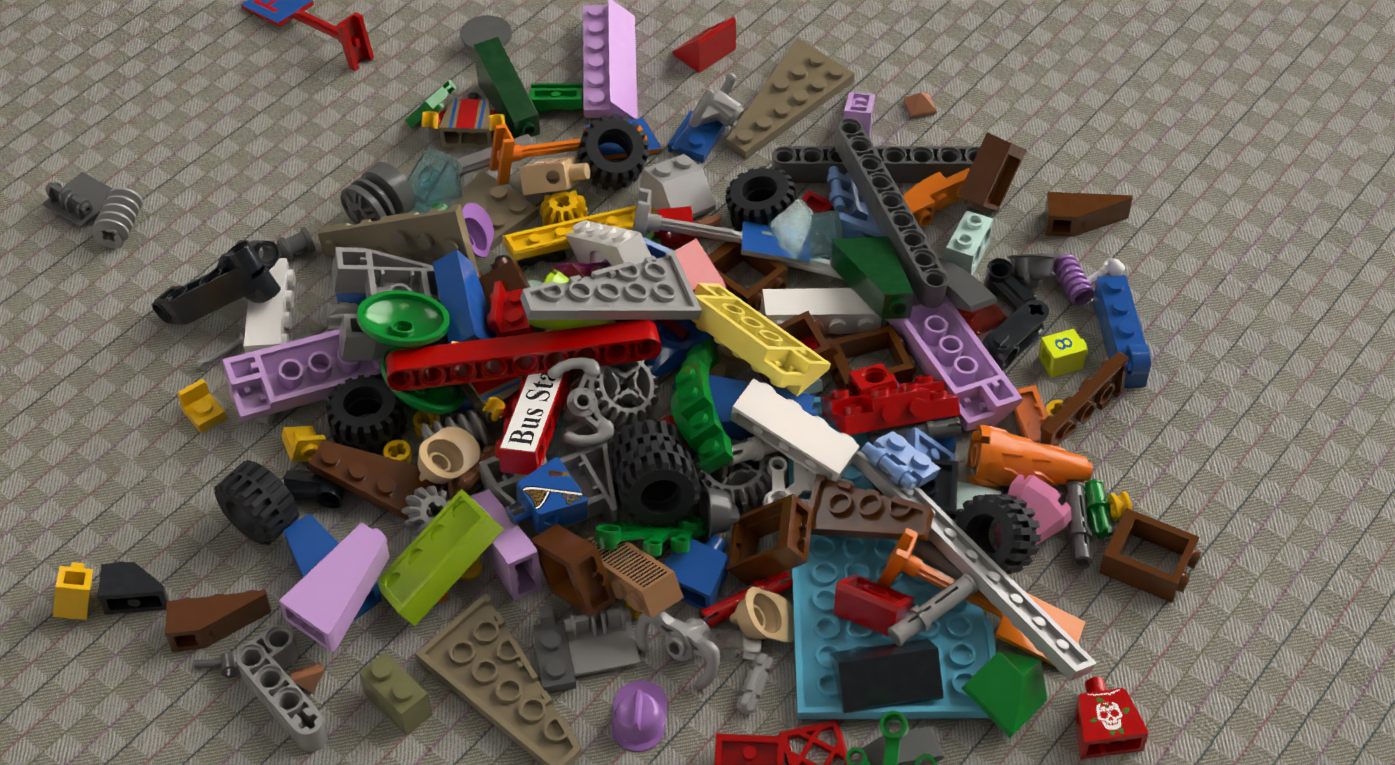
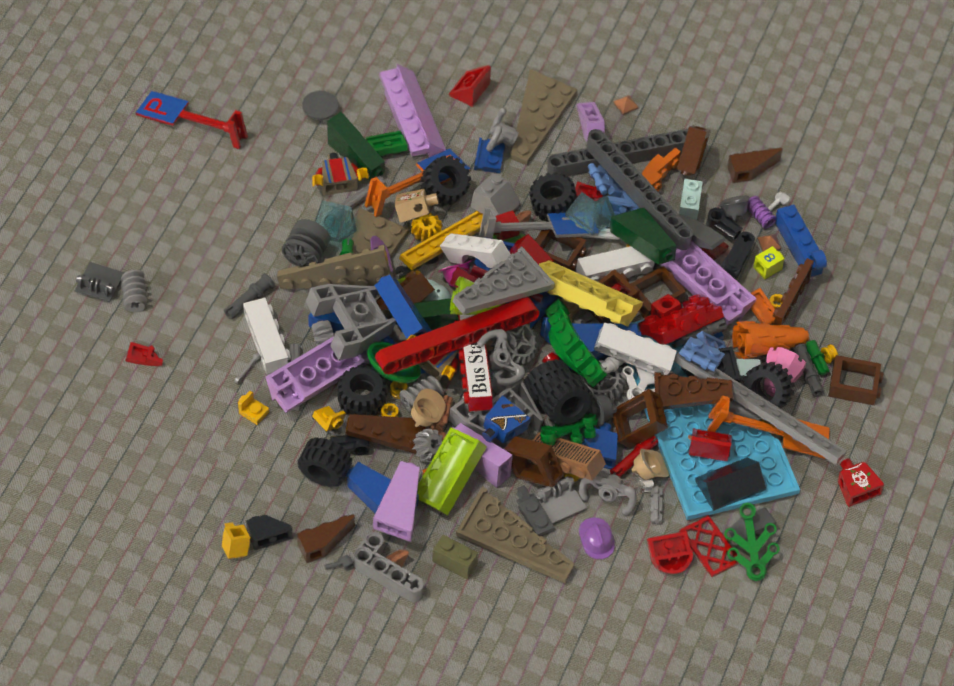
camera: 20 degrees left, 5 degrees up
(86, 304) = (143, 355): none -> red slope
(237, 276) = (245, 319): black connector -> none
(403, 319) = (377, 327): green dish -> none
(433, 103) = (309, 167): green plate -> none
(507, 313) = (434, 307): red bracket -> none
(922, 617) = (742, 445): light grey pin -> none
(1008, 689) = (800, 476): green slope -> none
(1078, 322) = (769, 241): none -> nougat slope

